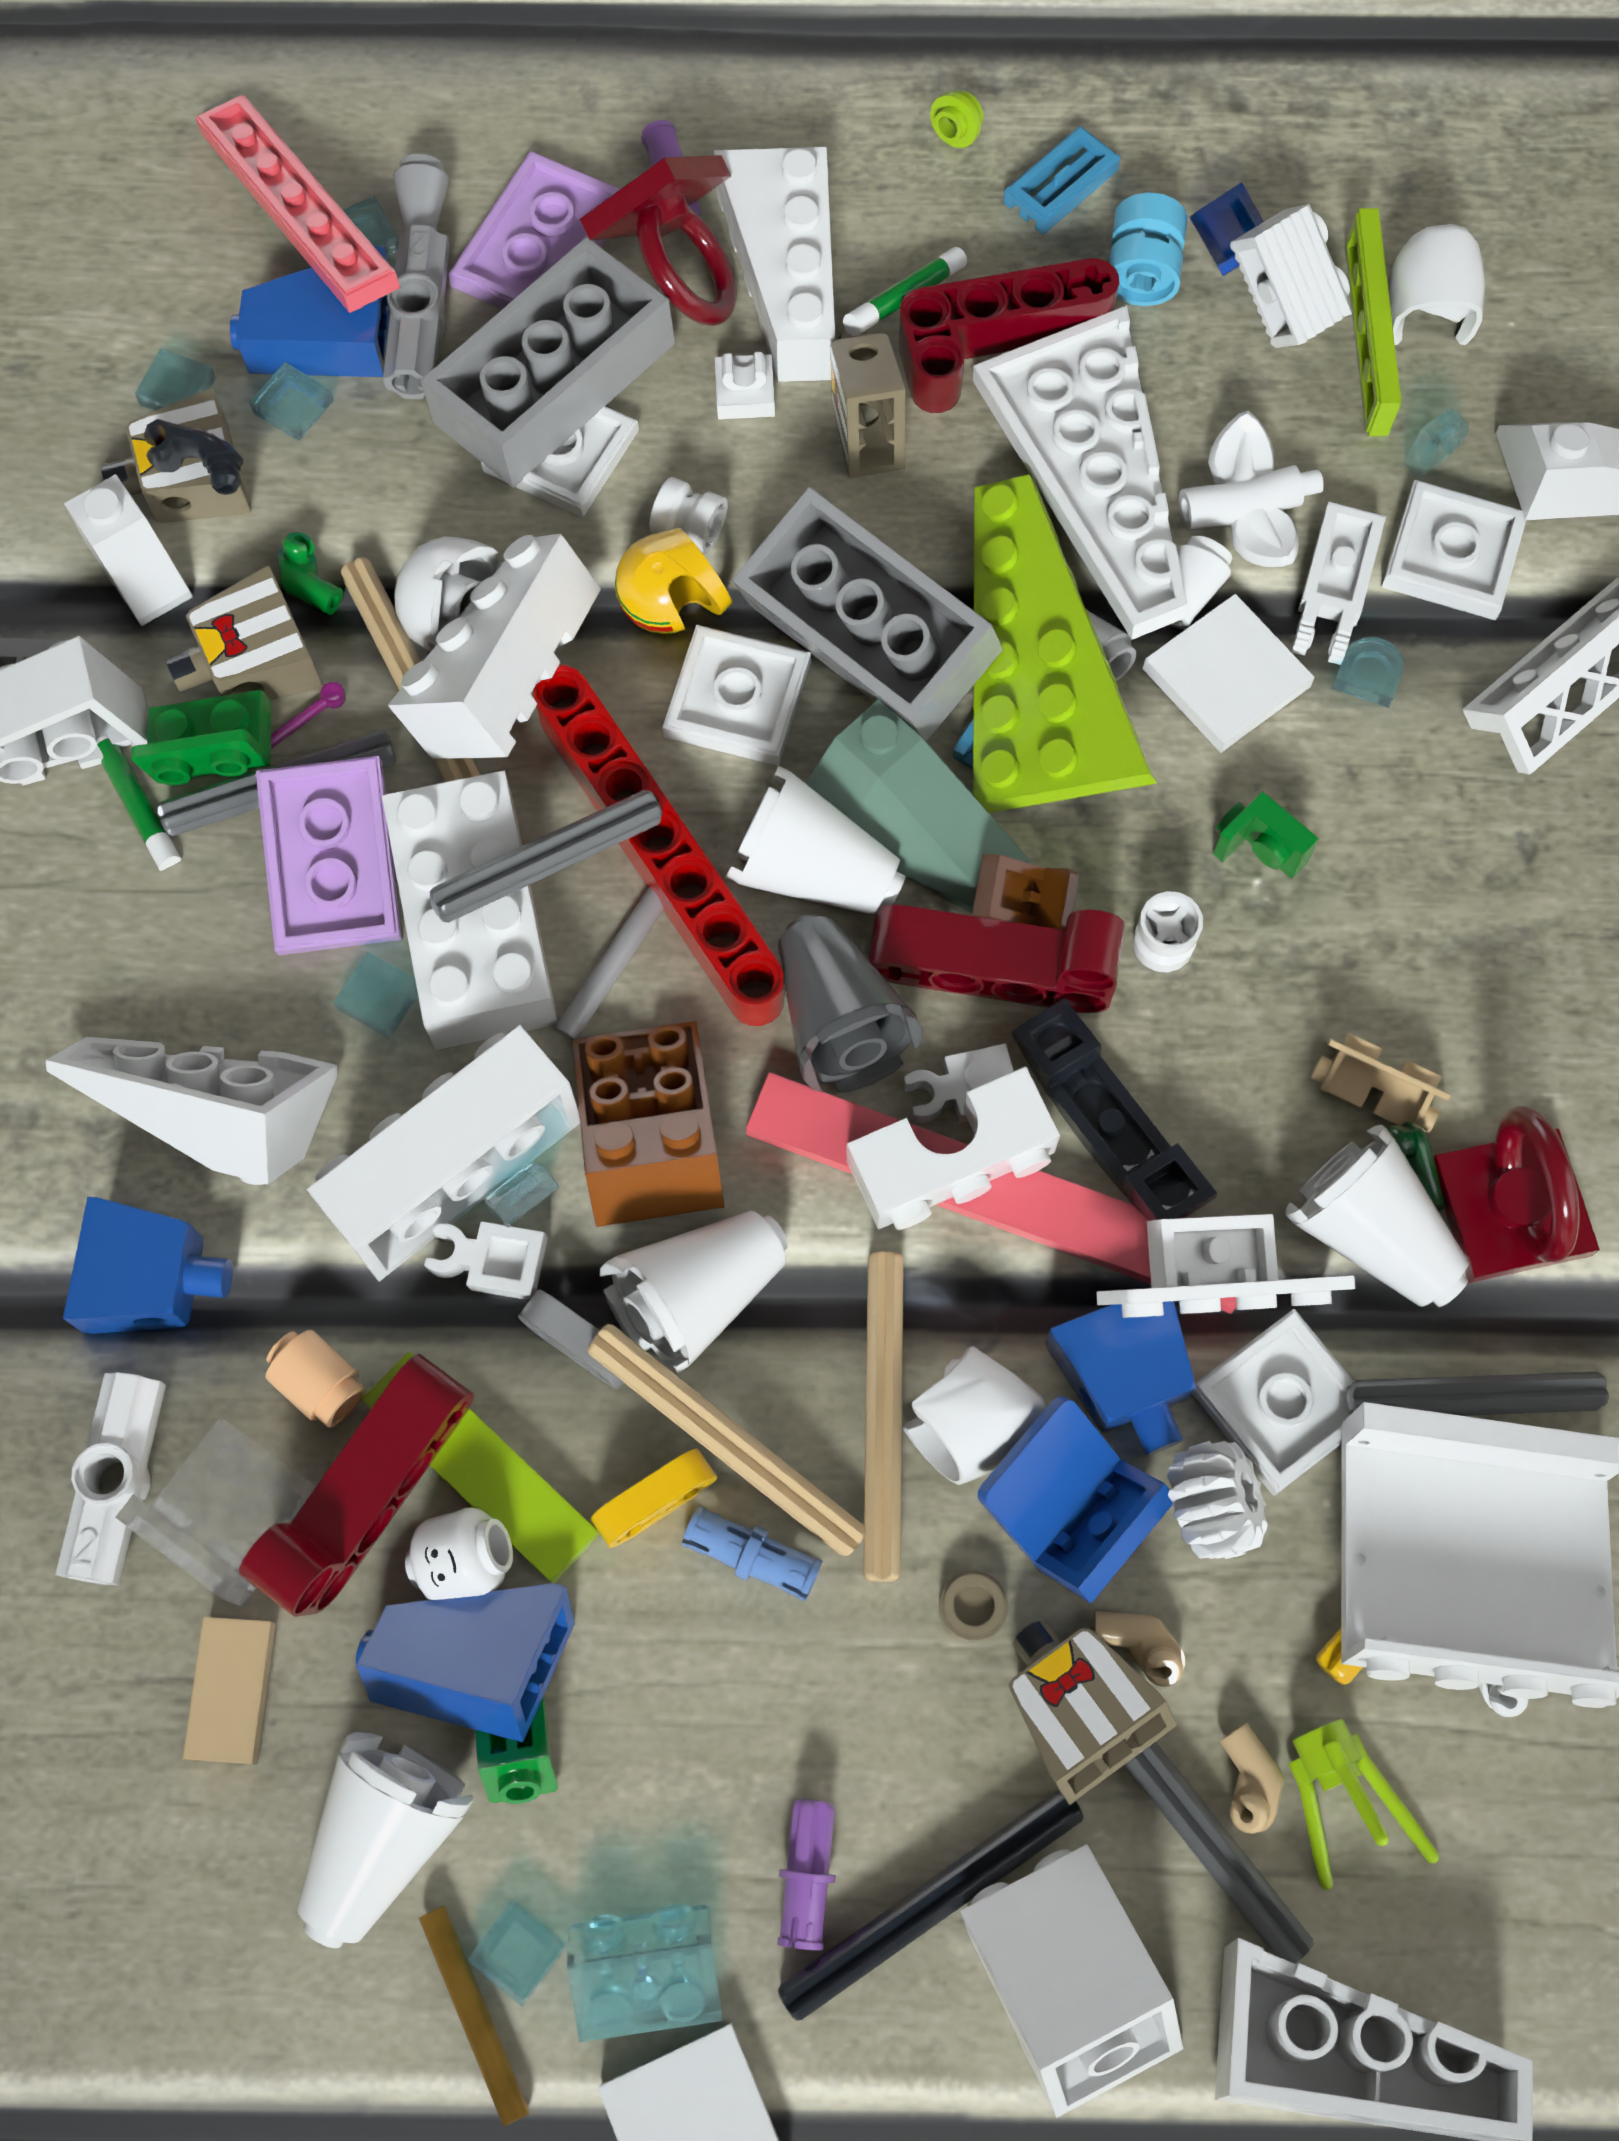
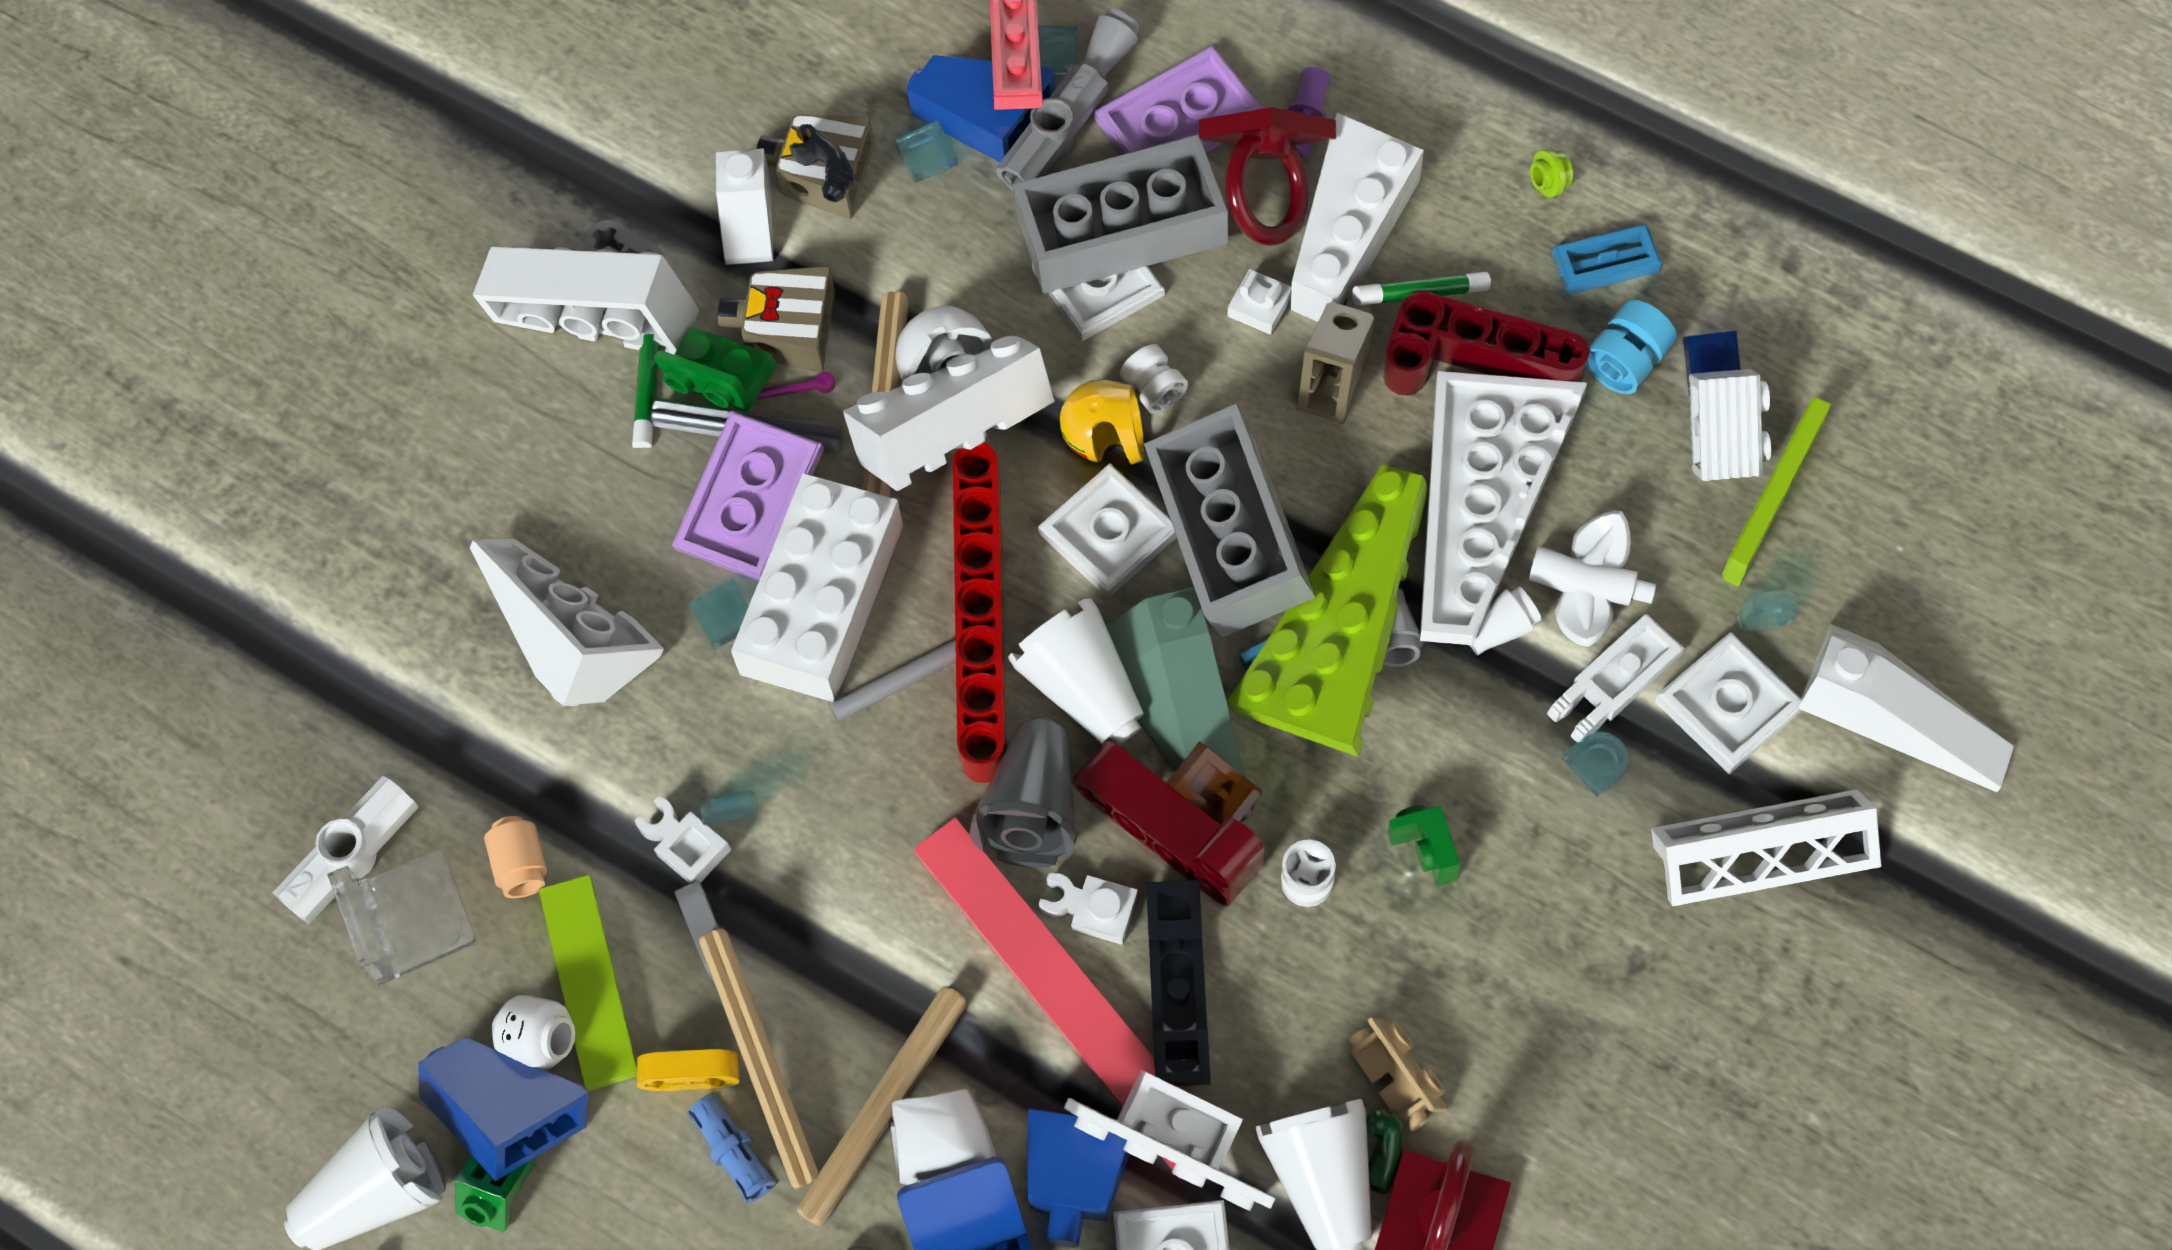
camera: 35 degrees right, 5 degrees down
(139, 1270) = (447, 719): blue torso -> none
(173, 379) = (853, 97): clear light blue tile -> none
(229, 1691) = (336, 1037): tan tile -> none
(300, 574) = (854, 283): green arm -> none
(317, 1553) = (449, 975): dark red beam -> none
(446, 1151) = (691, 749): white brick -> none
(545, 856) = (884, 576): axle -> none
(646, 1124) = (846, 806): dark orange slope -> none
(693, 1284) = (807, 936): white cone -> none
(906, 1179) = (1086, 955): white arch -> none
(1228, 673) = (1486, 705): white tile -> none
(1439, 274) = (1844, 484): white piece -> none

